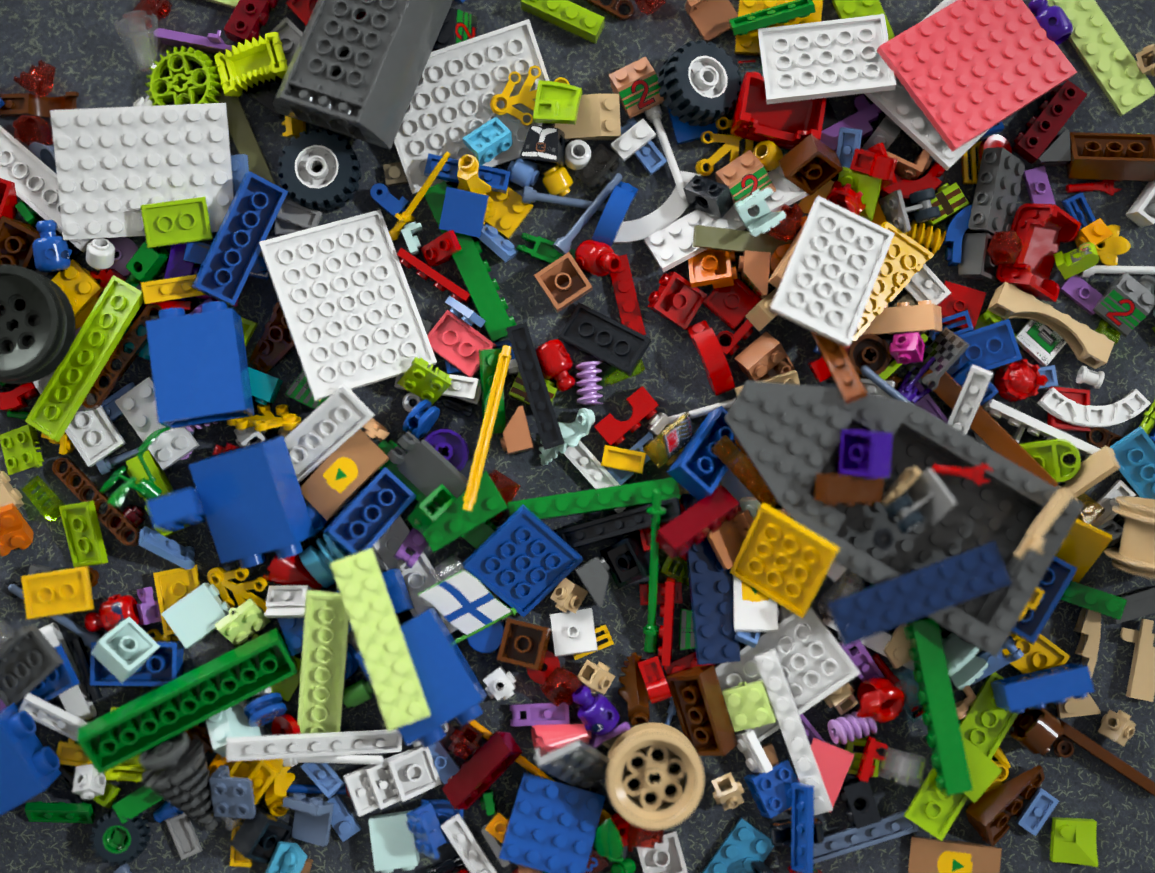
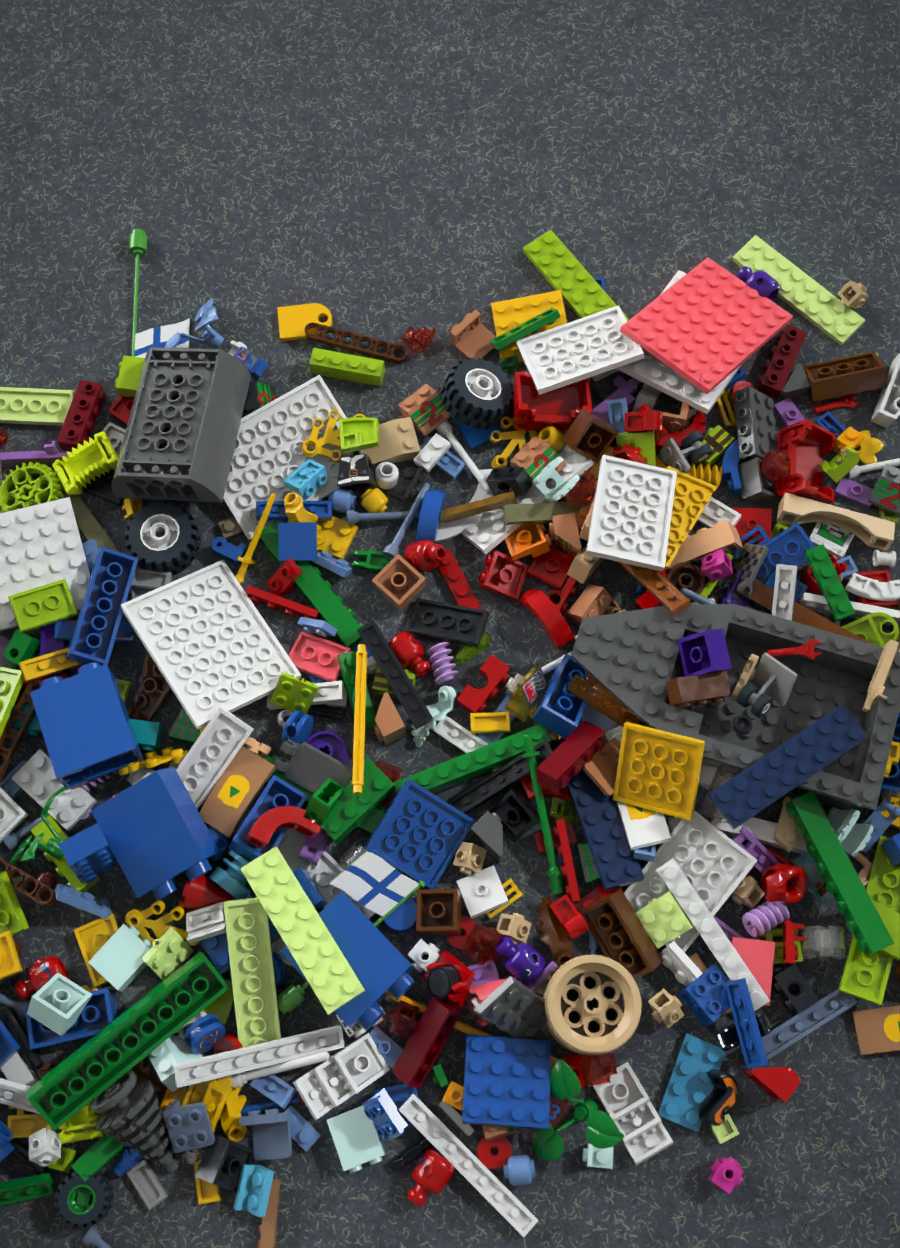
camera: 10 degrees left, 15 degrees down
(103, 706) = (44, 1069): none -> reddish brown plate
(149, 609) = (74, 966): medium lavender plate -> none
(364, 524) = (280, 818): none -> red arch
(412, 241) = (253, 574): light aqua bracket -> none
(518, 717) = (449, 980): none -> piece
(668, 217) = (478, 507): none -> pearl gold tile
(743, 54) = (509, 364): none -> clear green plate
(1022, 395) = (829, 582): none -> green plate

